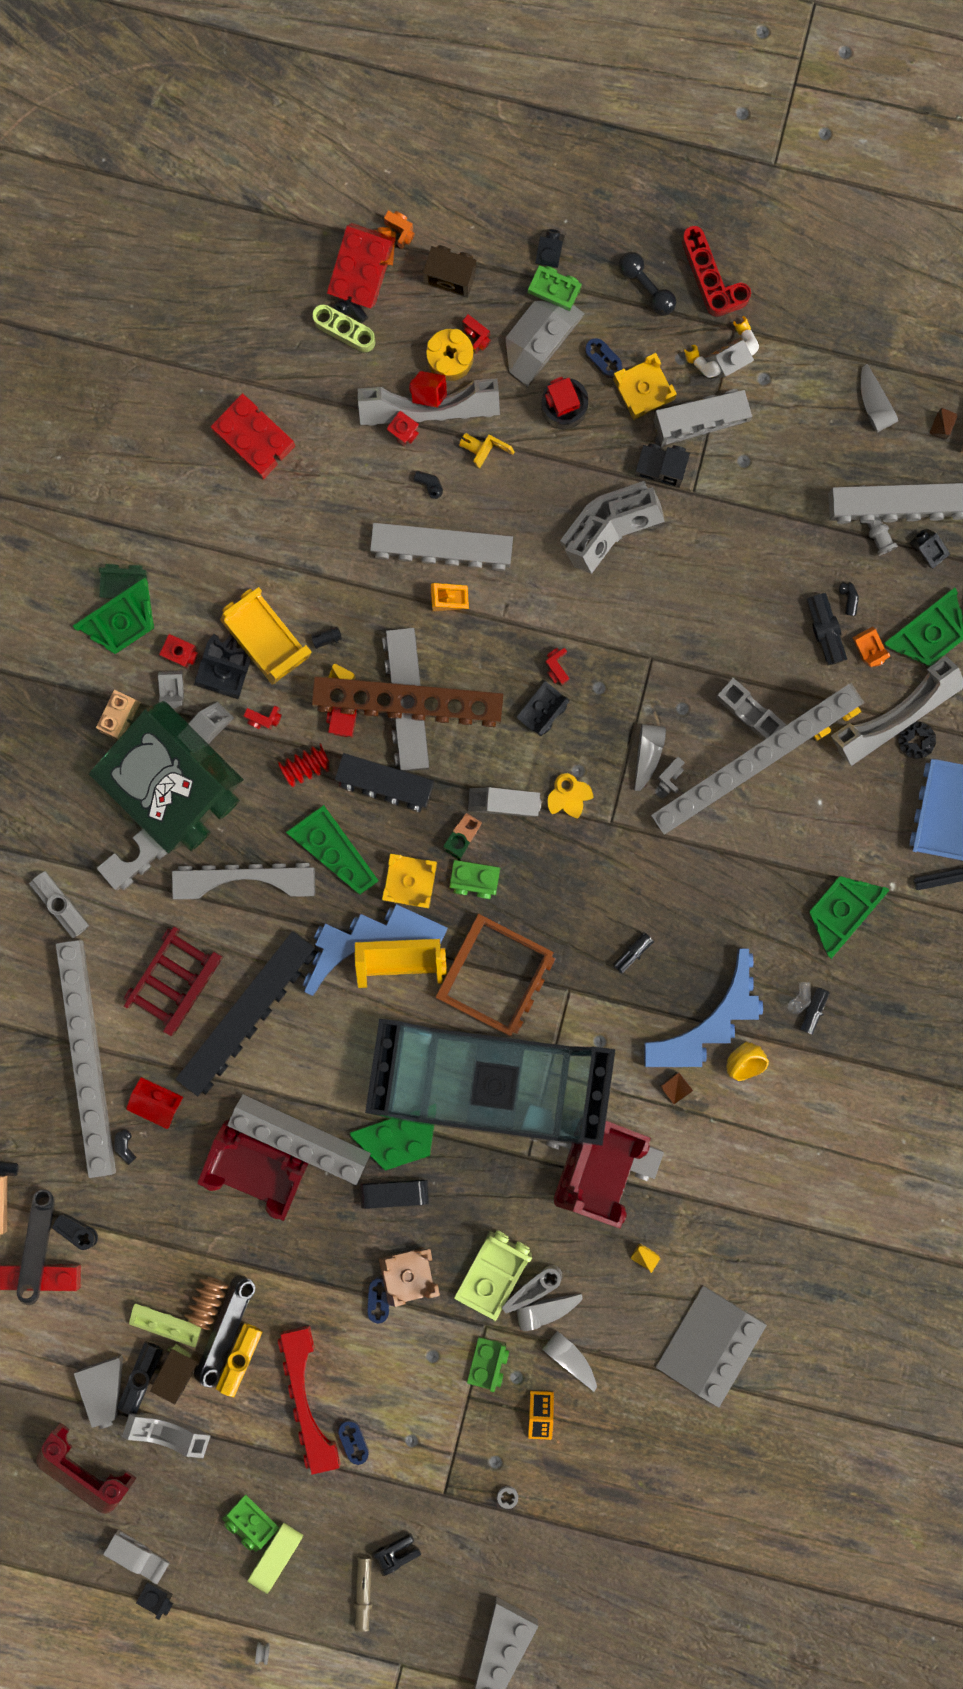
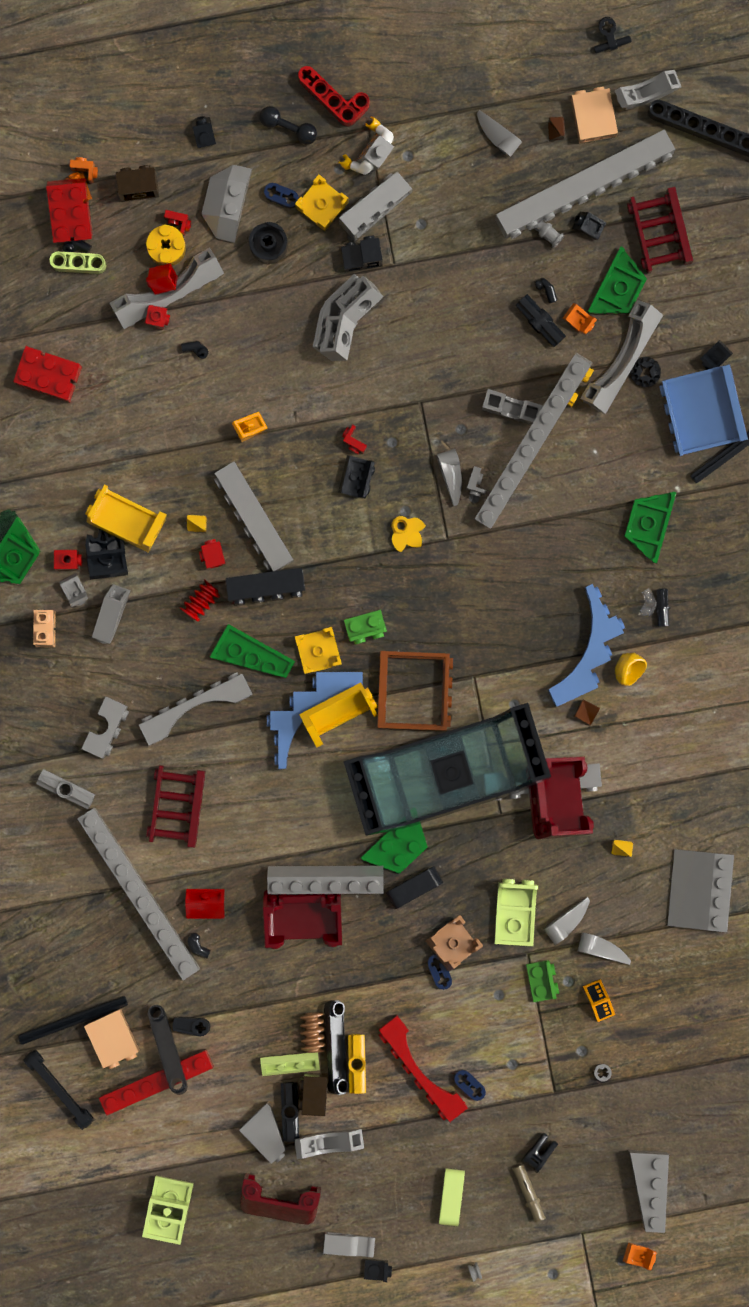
camera: 30 degrees left, 0 degrees up
(168, 778) = (104, 657): clear green brick -> none
(246, 1013) = (242, 805): black brick -> none
(250, 1524) = (421, 1181): bright green bracket -> none
(257, 720) = (149, 583): red bracket -> none
(326, 637) = (172, 498): black pin -> none
(326, 686) = (188, 535): reddish brown brick -> none
(441, 545) = (226, 390): light grey brick -> none
(462, 836) = (341, 600): leg -> none
(482, 449) = (223, 304): yellow bracket -> none
(504, 801) = (360, 559): light grey slope -> none
(534, 1289) = (550, 909): light grey piece -> none
(555, 287) = (221, 160): bright green bracket -> none
(562, 396) = (264, 239): red brick -> none
(633, 952) = (508, 627): black axle -> none

